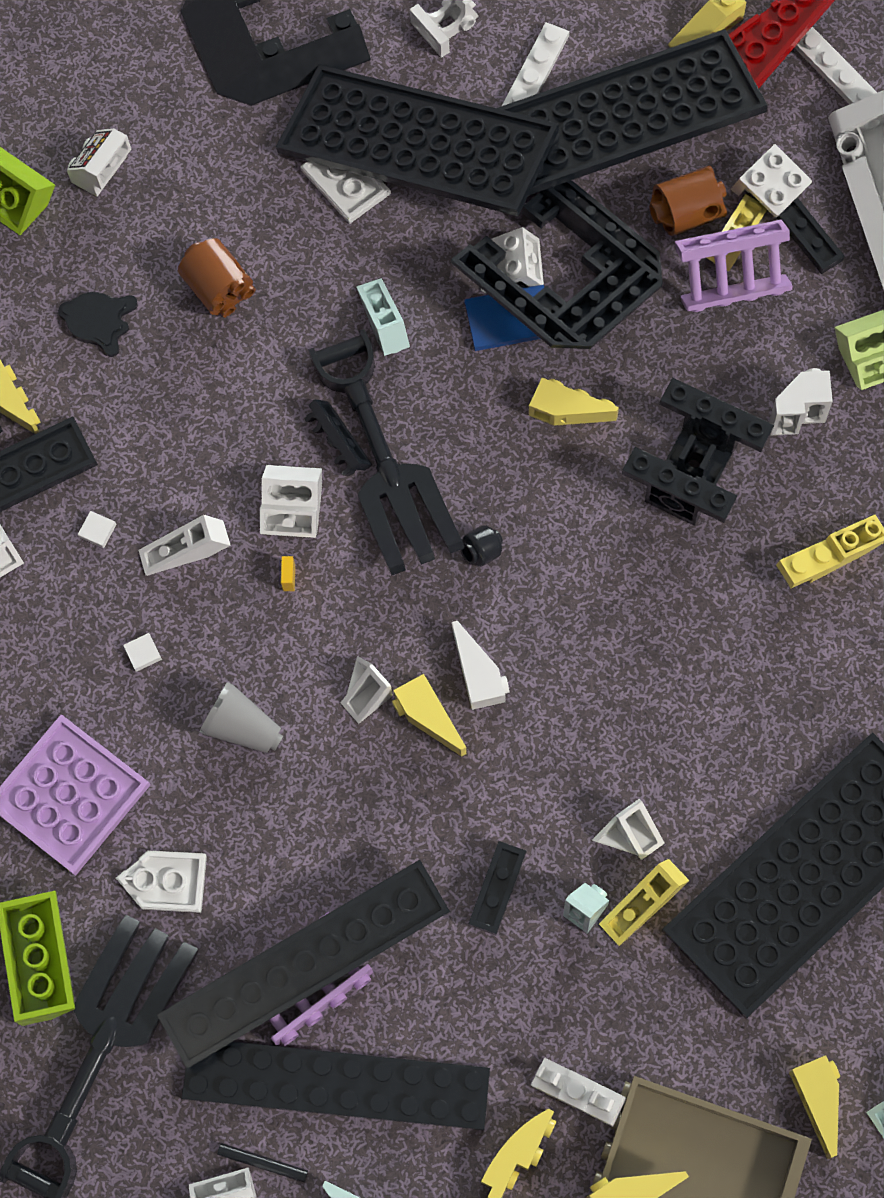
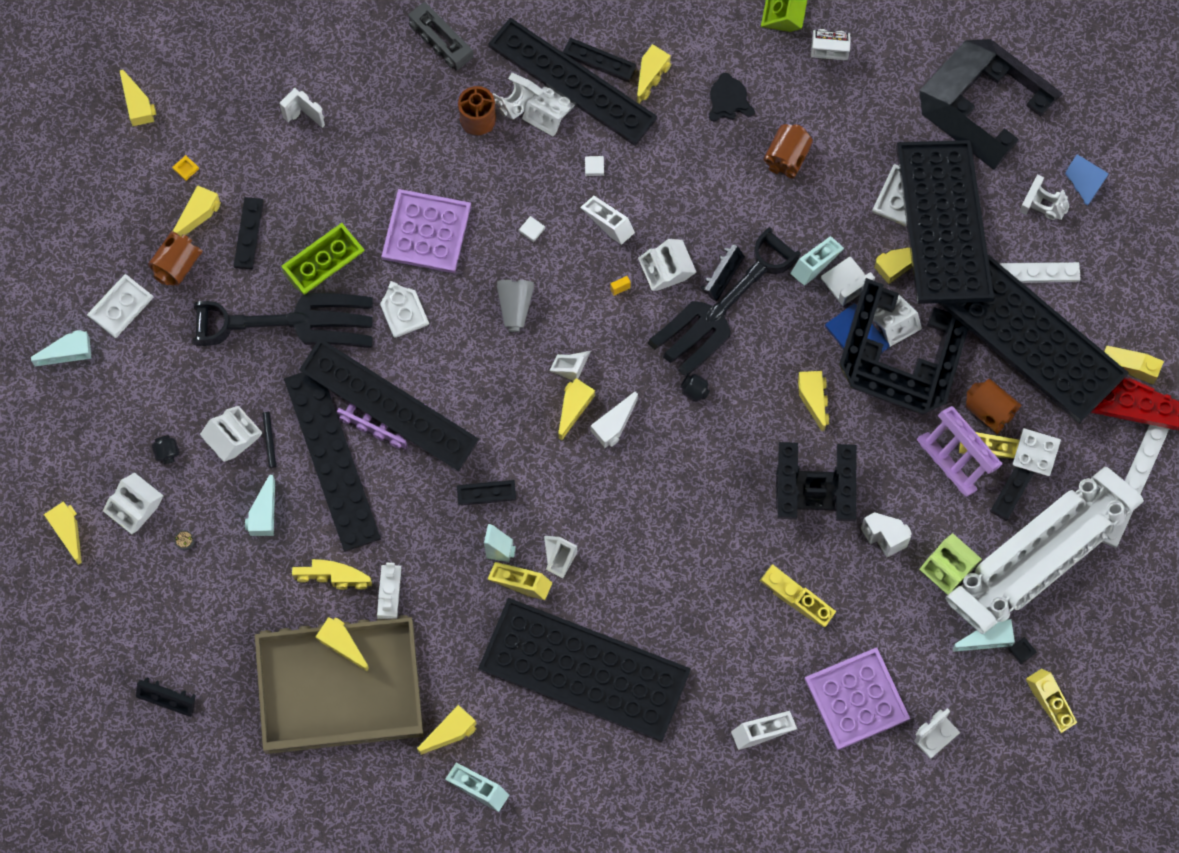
camera: 60 degrees right, 0 degrees up
(430, 293) = (846, 280): none -> white bracket
(437, 226) = (893, 264): none -> light yellow slope

